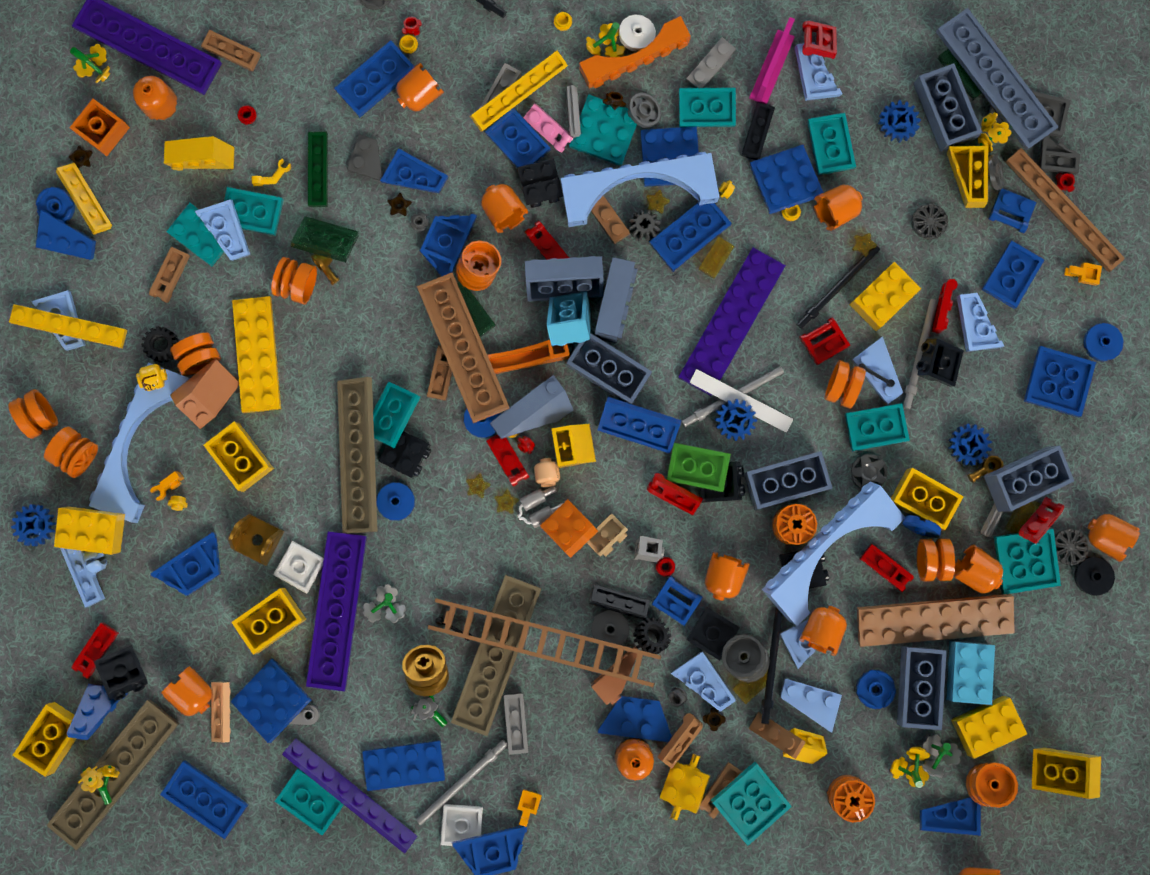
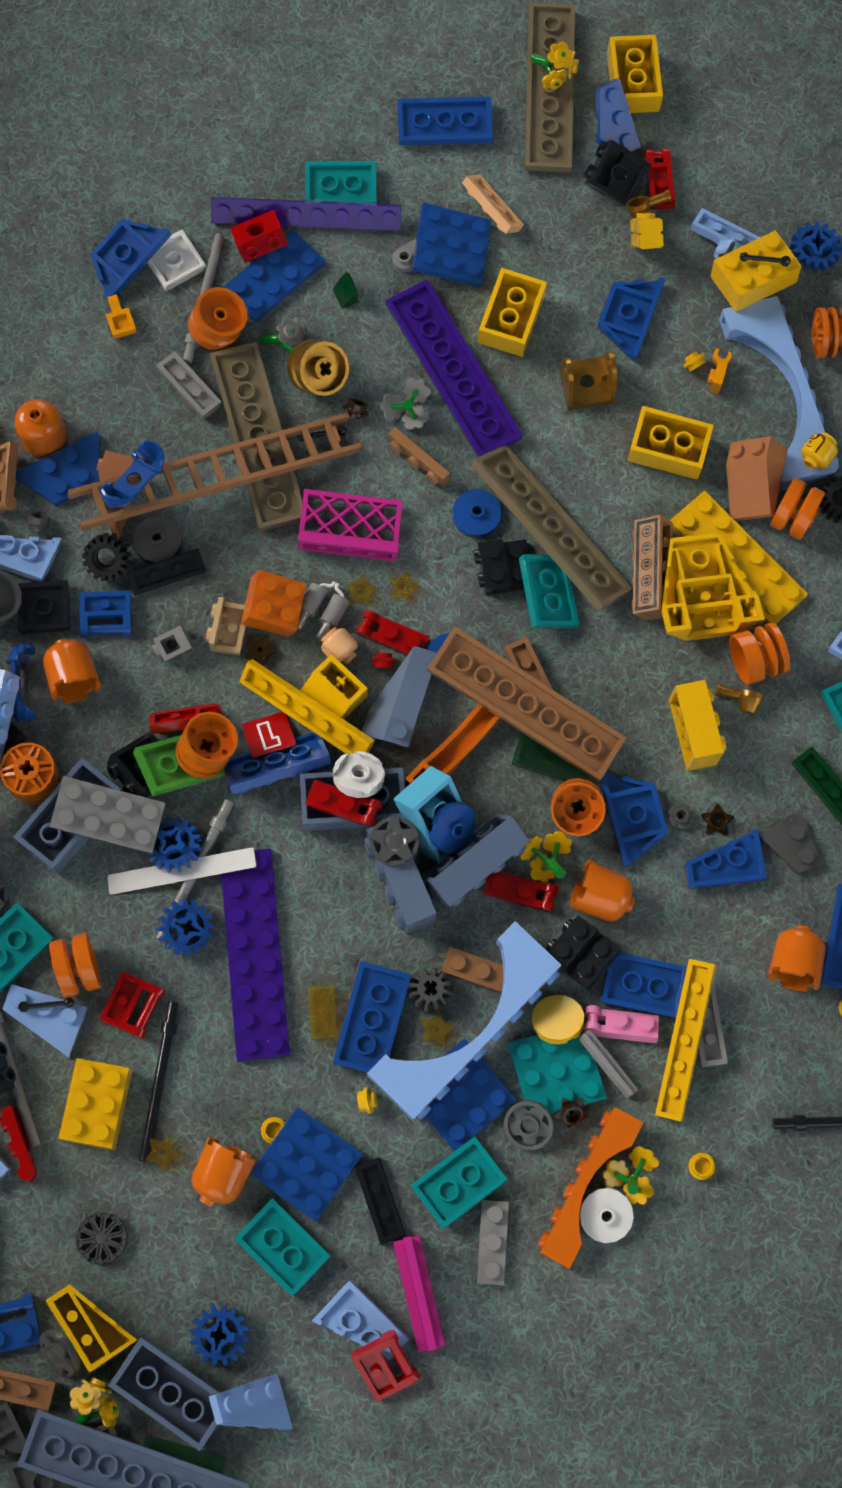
camera: 140 degrees right, 10 degrees down
(68, 517) = (784, 261): none -> black hinge
(124, 638) = (643, 203): none -> pearl gold bar
(137, 612) = (646, 231): none -> yellow brick
(189, 693) = (536, 196): orange cylinder -> none
(293, 344) = (706, 590): none -> yellow wedge
(299, 567) = (524, 385): white tile -> none
(315, 383) = (649, 558): none -> medium nougat brick
(324, 239) = (764, 722): clear green plate -> none
(365, 718) = (346, 291): none -> dark green slope
(367, 263) = (697, 725): none -> yellow brick
(401, 806) = (259, 236): none -> red brick
(405, 563) = (418, 458): none -> medium nougat plate
(419, 627) = (356, 408): none -> dark brown plate
(467, 744) = (217, 319): none -> orange wheel
(489, 534) = (349, 545): none -> dark pink fence
(521, 248) = (544, 867): none -> yellow plant
(565, 301) = (452, 827): none -> blue plate
(583, 155) = (558, 1019): none -> yellow tile
(588, 377) = (362, 765): none -> white plate
(588, 670) = (147, 463): none -> blue piece
(597, 445) = (304, 709): none -> yellow plate
(597, 513) = (262, 656): none -> dark brown plate
(606, 316) = (394, 841): none -> dark grey wheel
(619, 364) = (334, 802): none -> red plate
(629, 449) = (268, 734): none -> red sticker
(670, 562) = (137, 635): red plate -> none
(671, 451) = (206, 745): none -> orange wheel
(754, 608) = (17, 659): none -> blue piece
(763, 363) = (181, 937): none -> blue gear
(766, 460) = (107, 815): none -> light grey plate
(907, 68) = (253, 1405): none -> light blue wing

